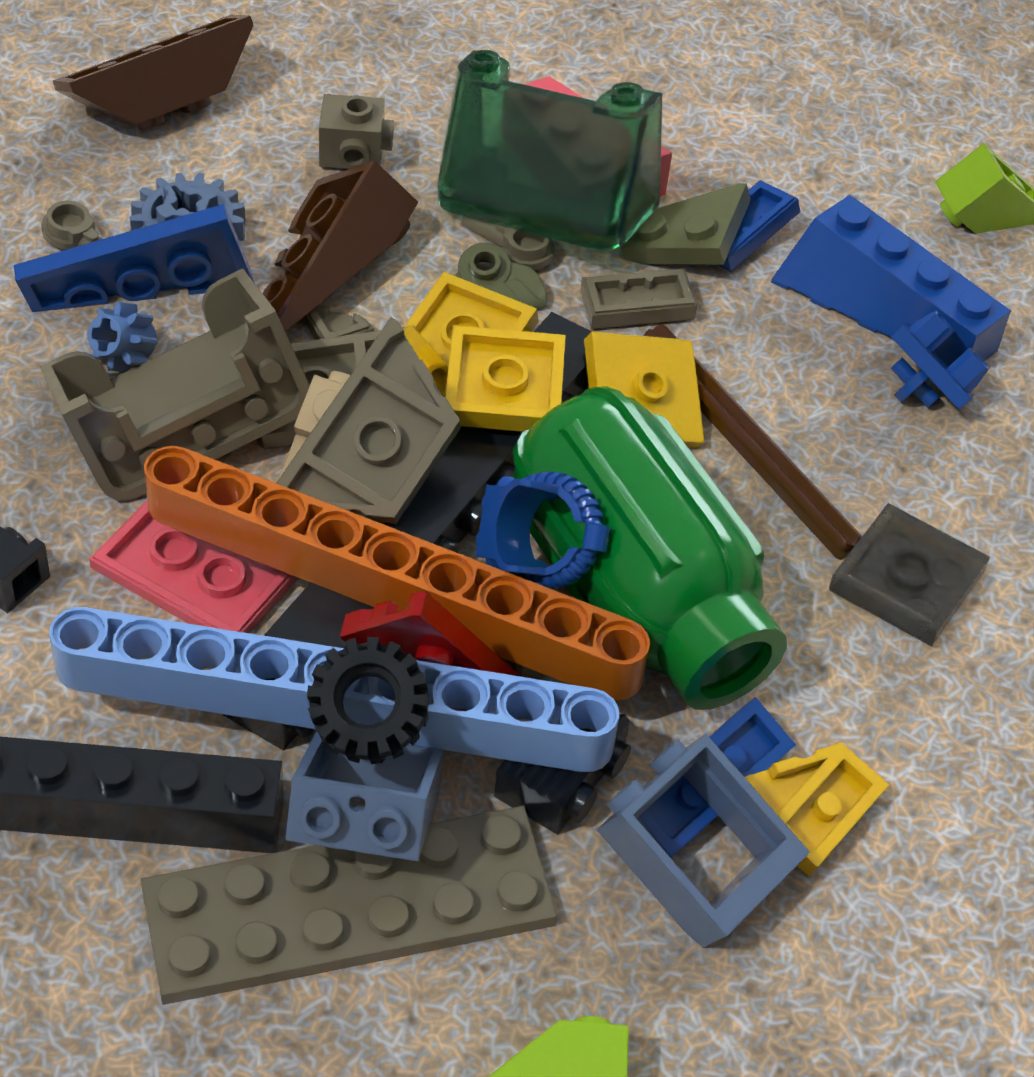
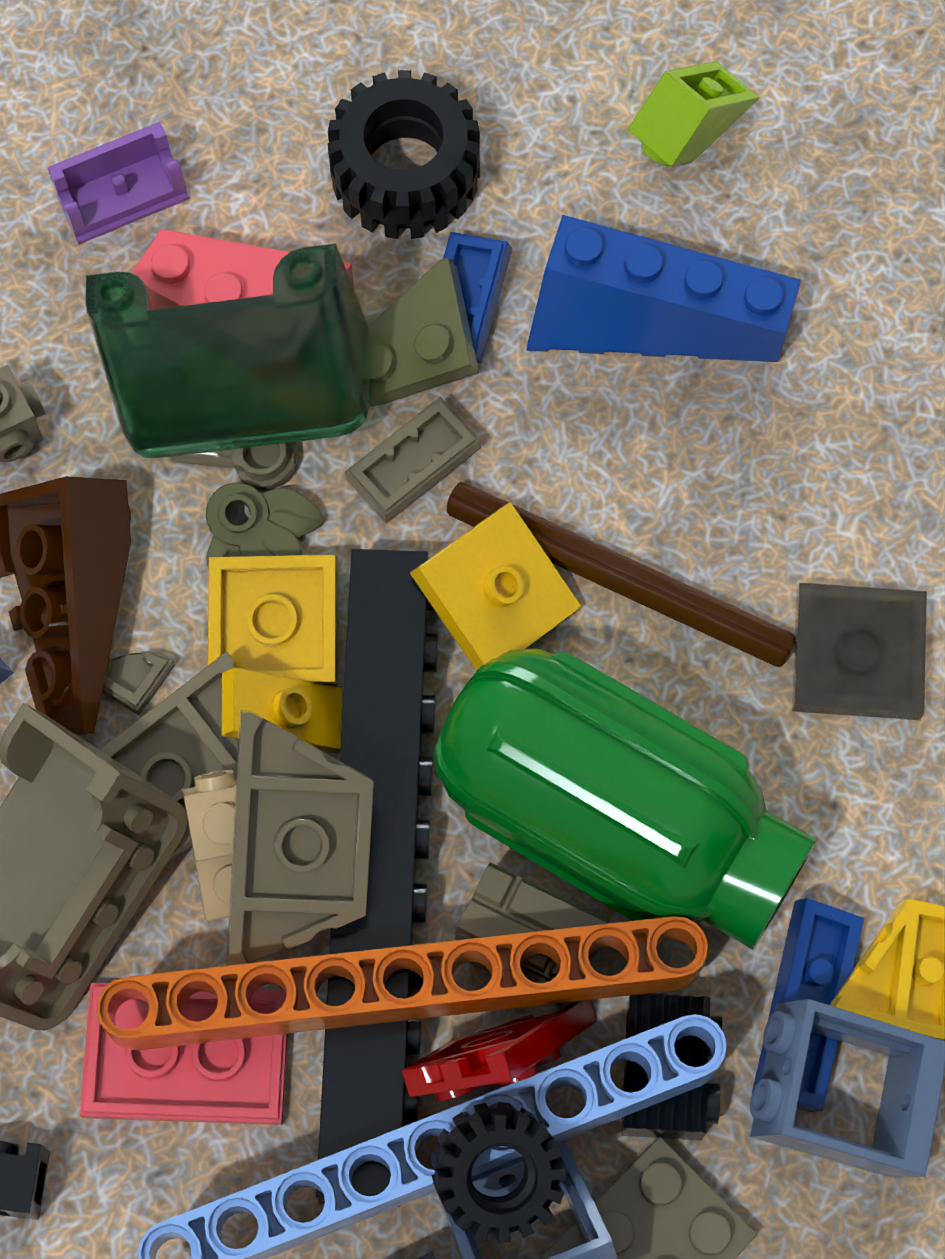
camera: 25 degrees left, 20 degrees up
(504, 376) = (367, 677): yellow plate -> none
(507, 522) = (495, 888): blue piece -> none
(544, 49) = (118, 183): none -> medium lavender hinge
(757, 123) = (404, 110): none -> black tyre
(953, 380) = (753, 392): blue hips -> none

